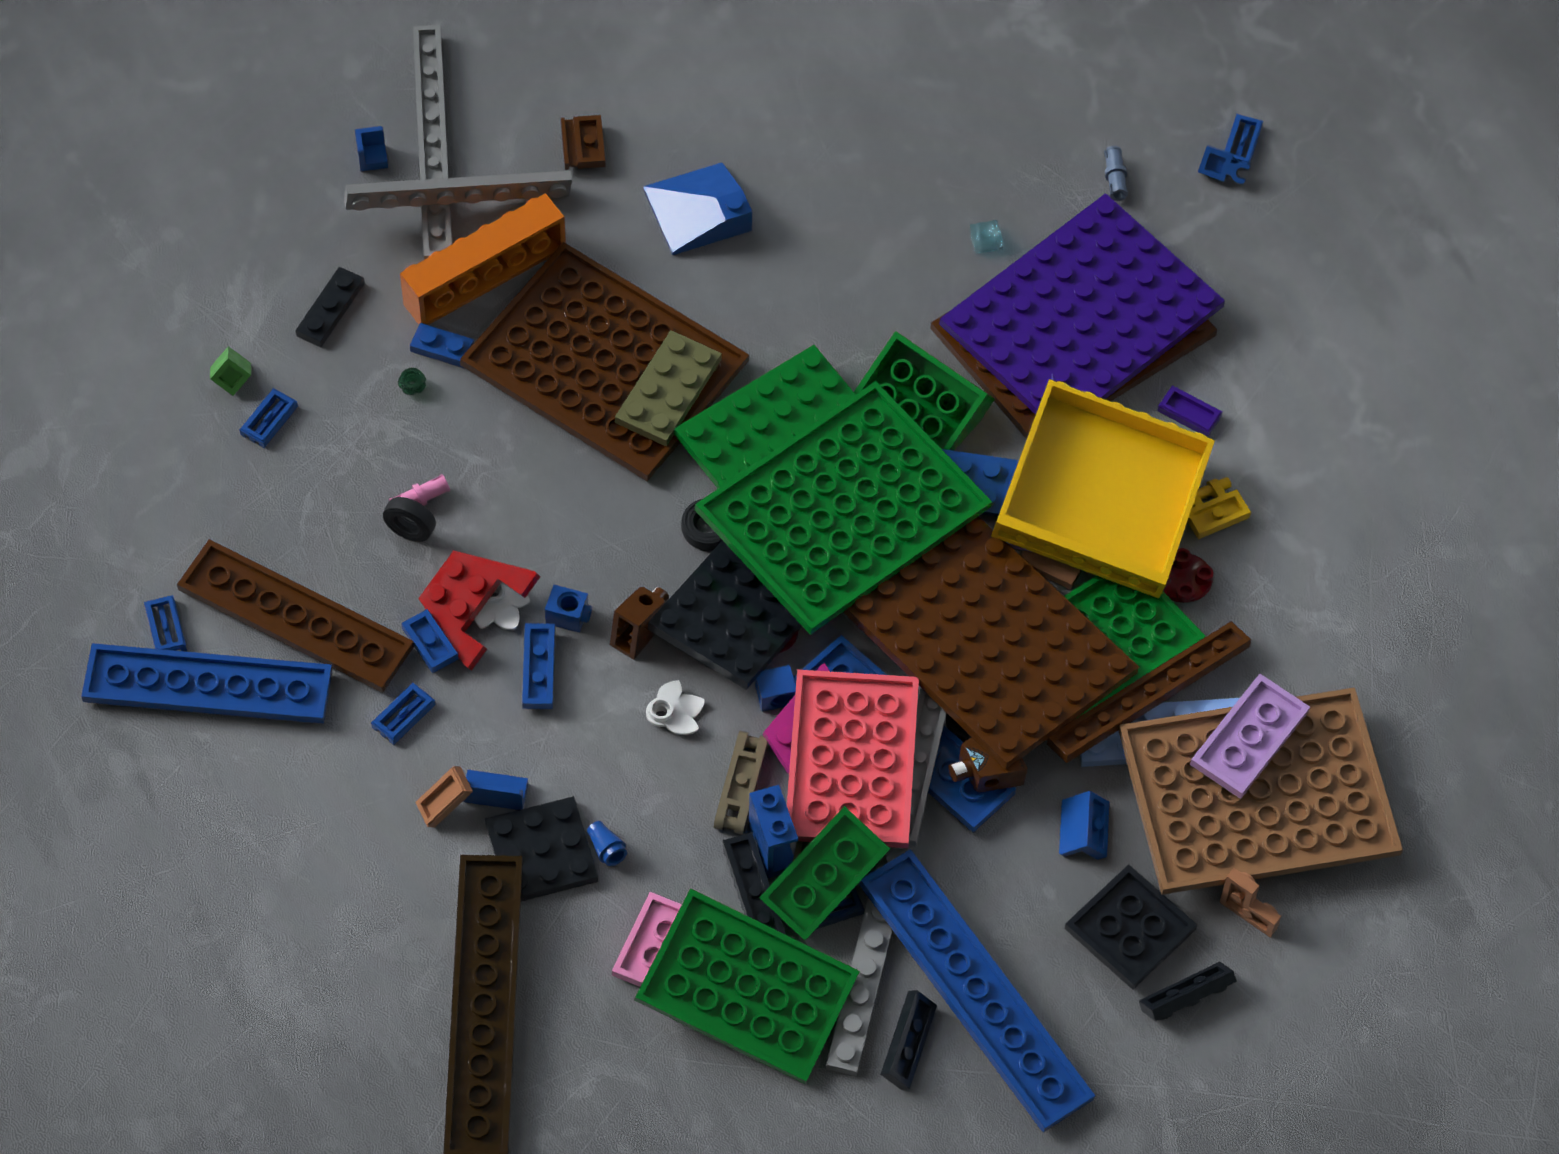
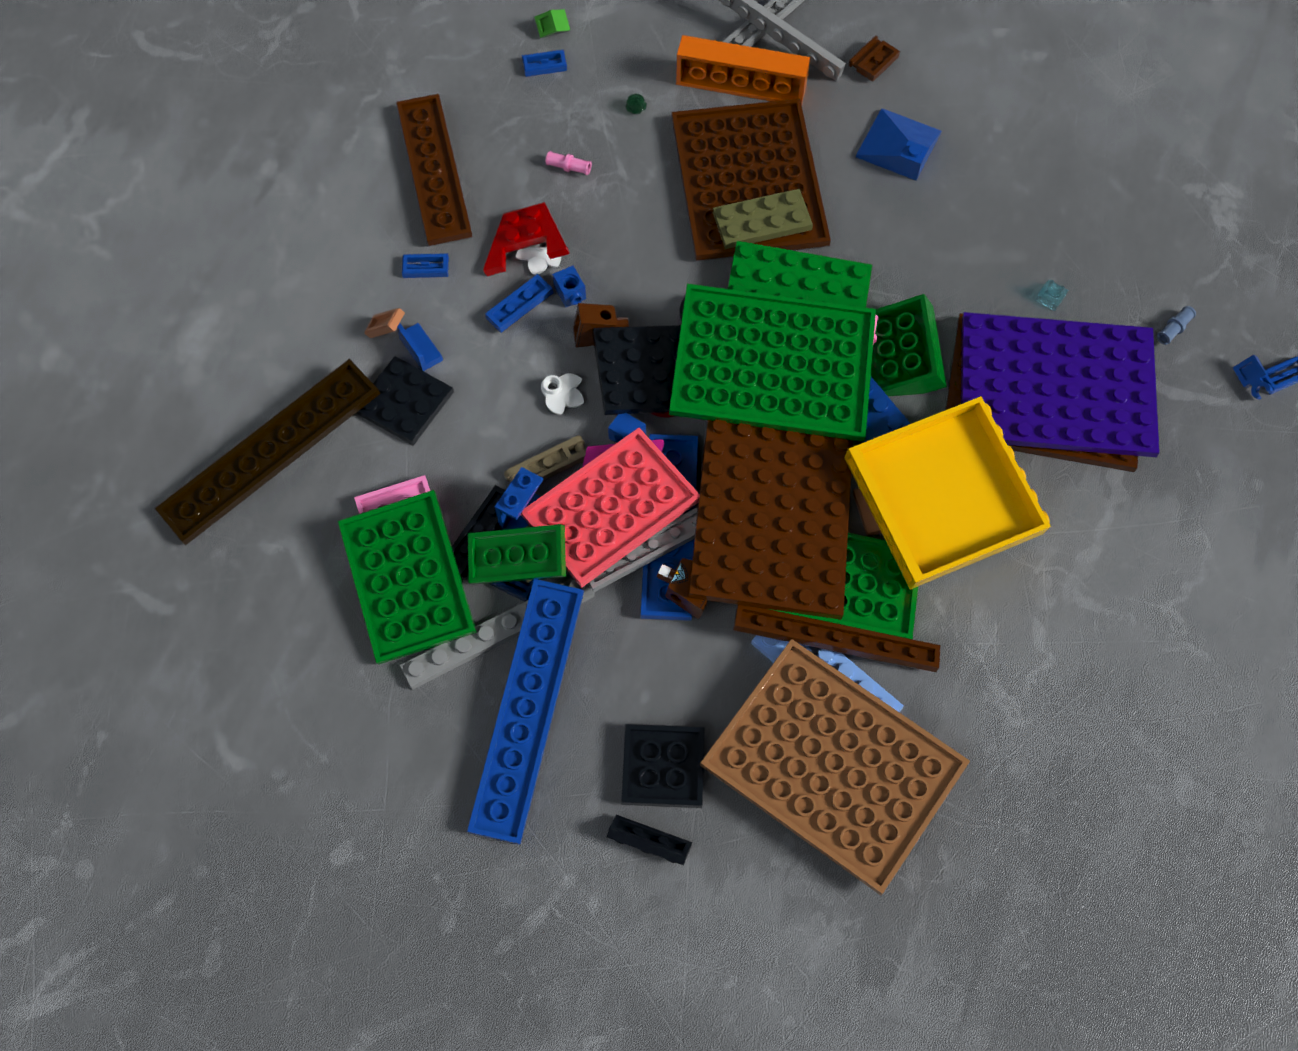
camera: 50 degrees right, 5 degrees up
(159, 603) = (373, 121): blue tile -> none
(207, 683) = (352, 164): blue plate -> none
(330, 307) = (641, 34): black plate -> none
(402, 507) = (543, 167): black tyre -> none
(430, 641) = (481, 240): blue plate -> none
(440, 344) = (673, 97): blue plate -> none
(607, 844) = (436, 430): blue cone -> none
(908, 1039) = (458, 698): black plate -> none
(1084, 825) = (708, 679): blue panel -> none
(1189, 411) = (1063, 500): dark purple tile -> none
(1189, 578) = (945, 594): dark red dish -> none
(1219, 512) = (1009, 574): yellow plate -> none
(1240, 897) = (748, 816): nougat plate -> none
(1250, 736) = (862, 724): lavender plate -> none

